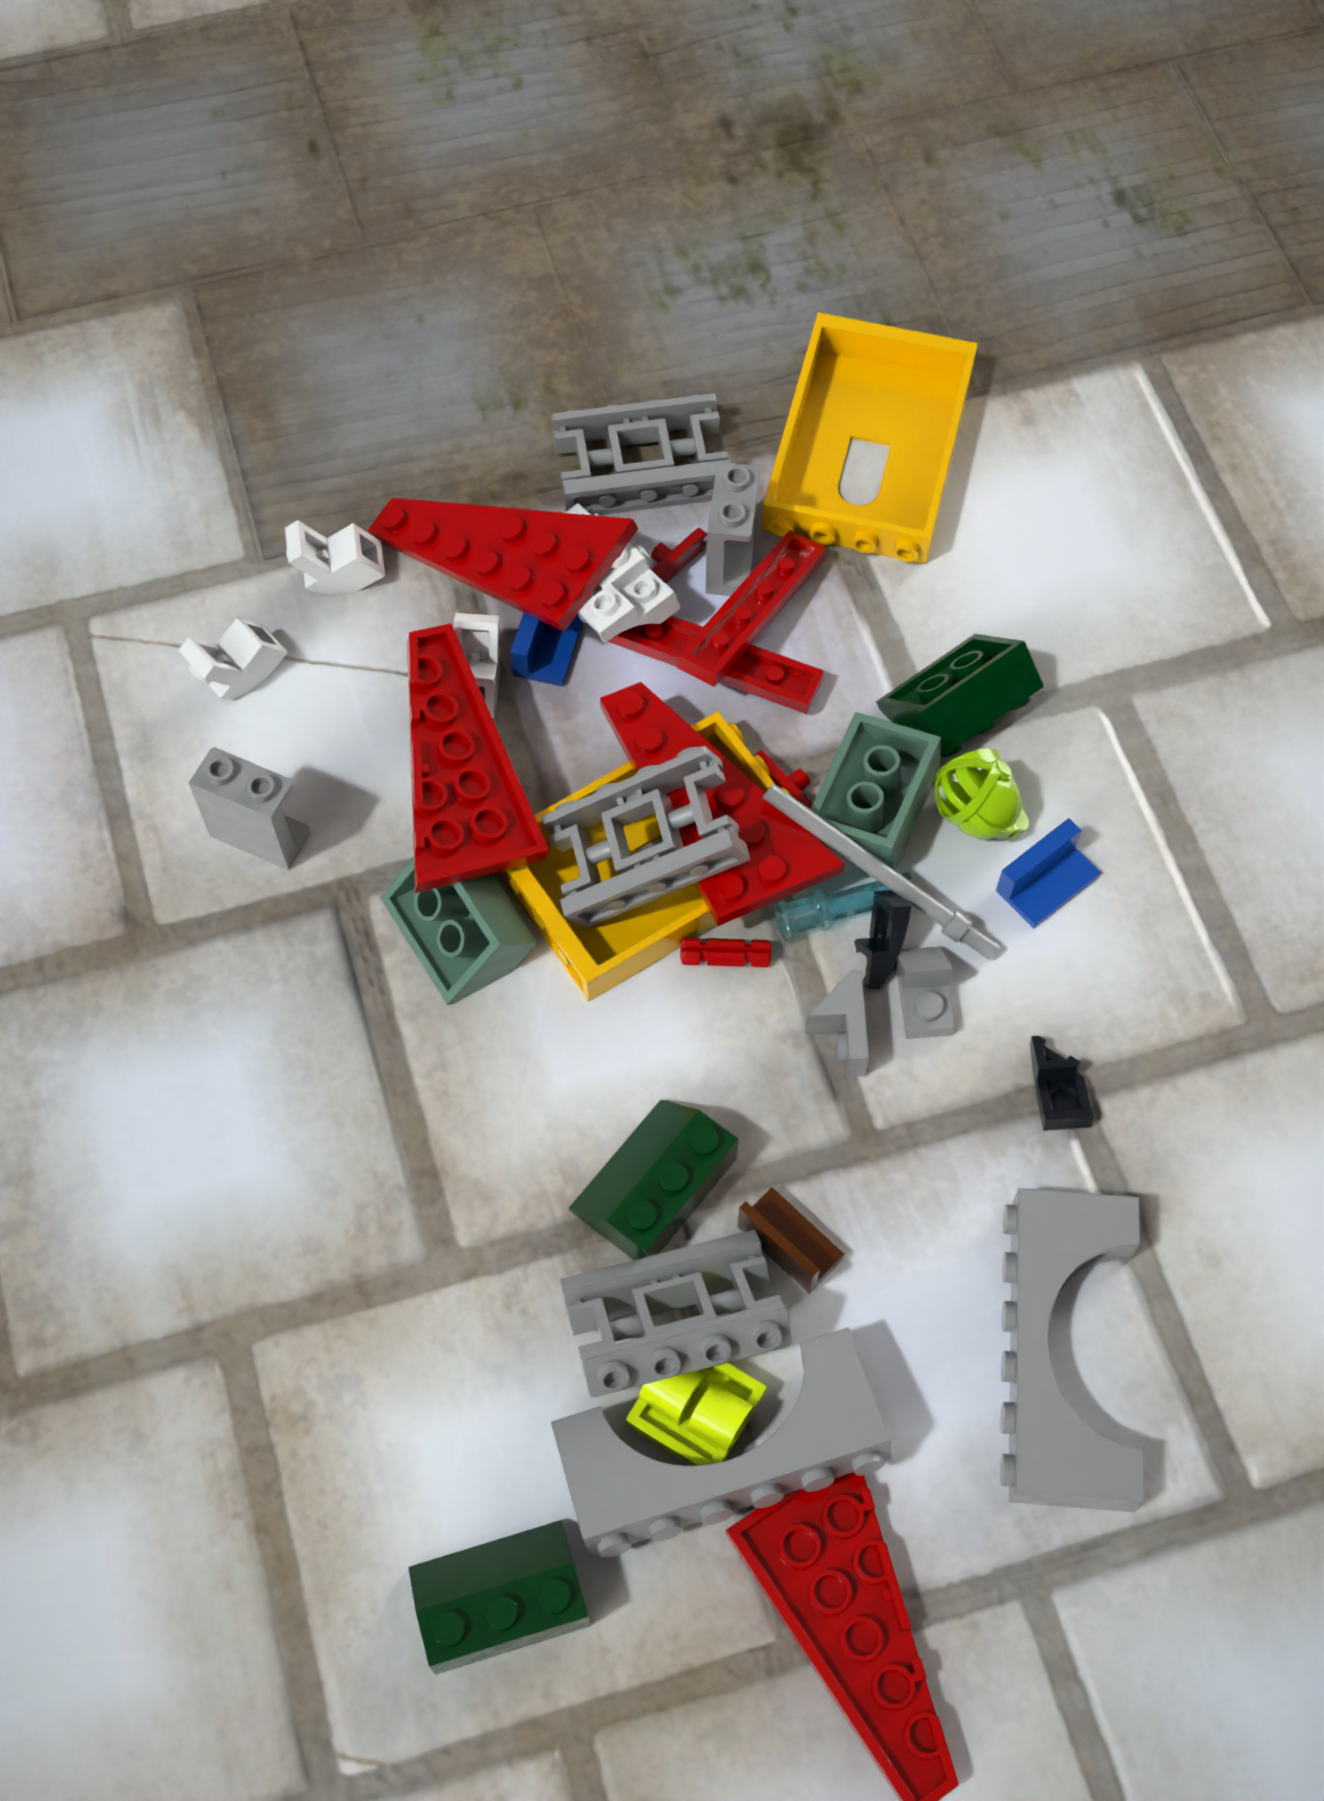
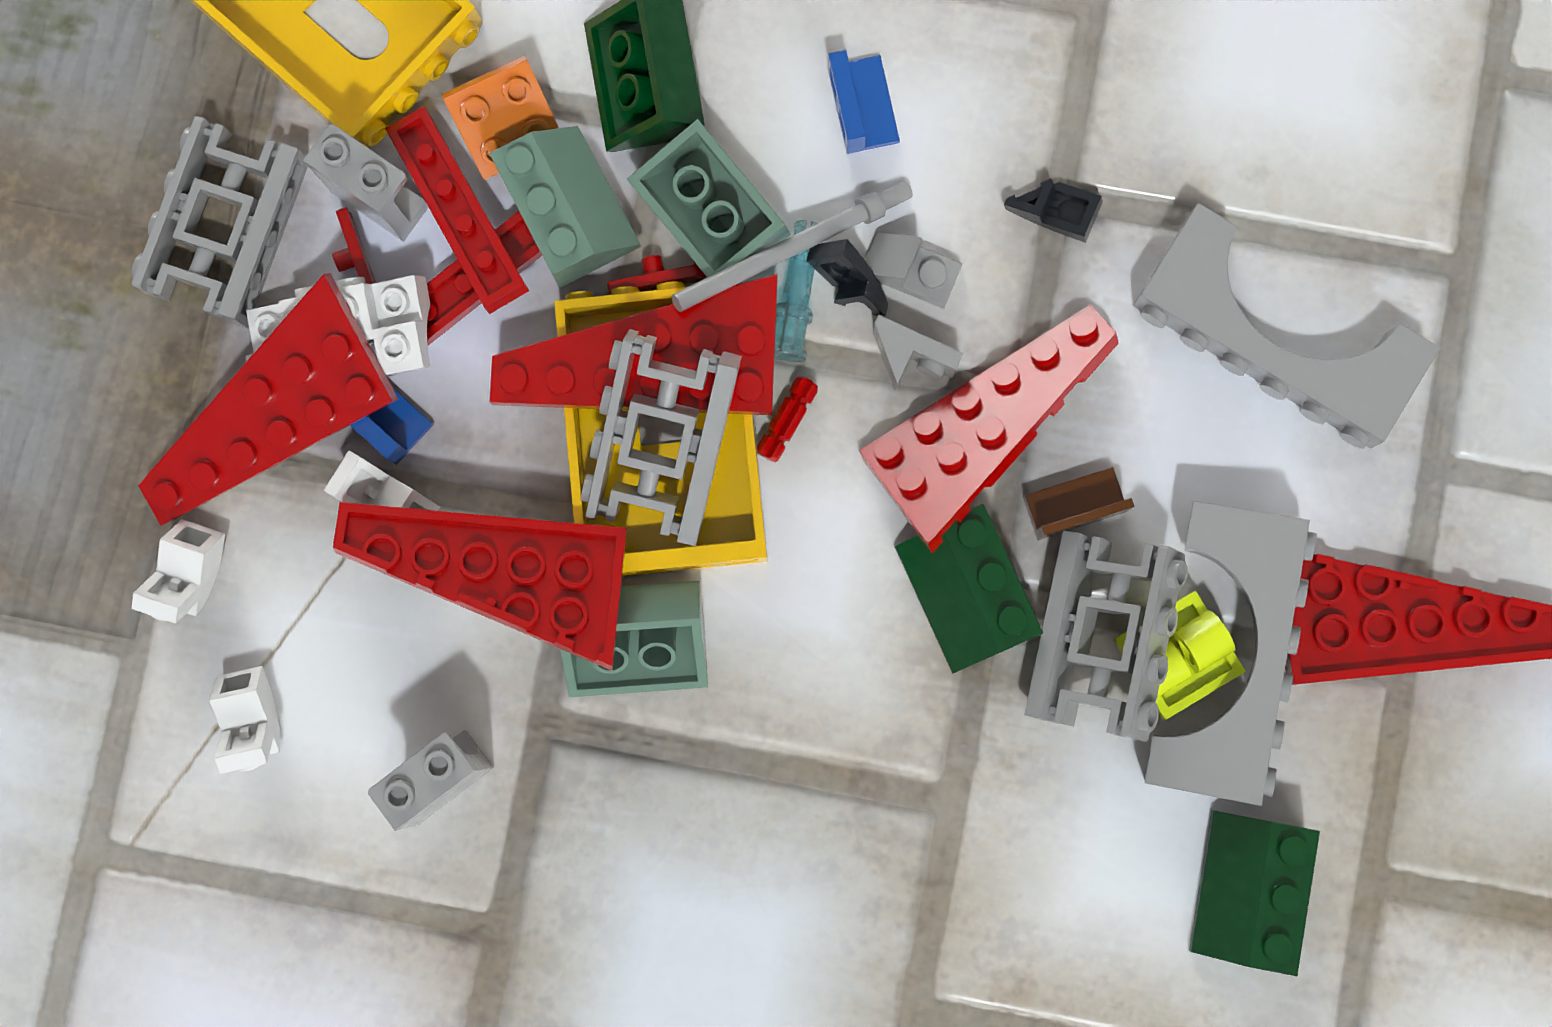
camera: 55 degrees left, 20 degrees up
(805, 678) = (565, 202): none -> sand green slope
(818, 1114) = (976, 432): none -> wing
(853, 606) = (498, 111): none -> orange plate
(981, 801) = (765, 116): lime helmet -> none

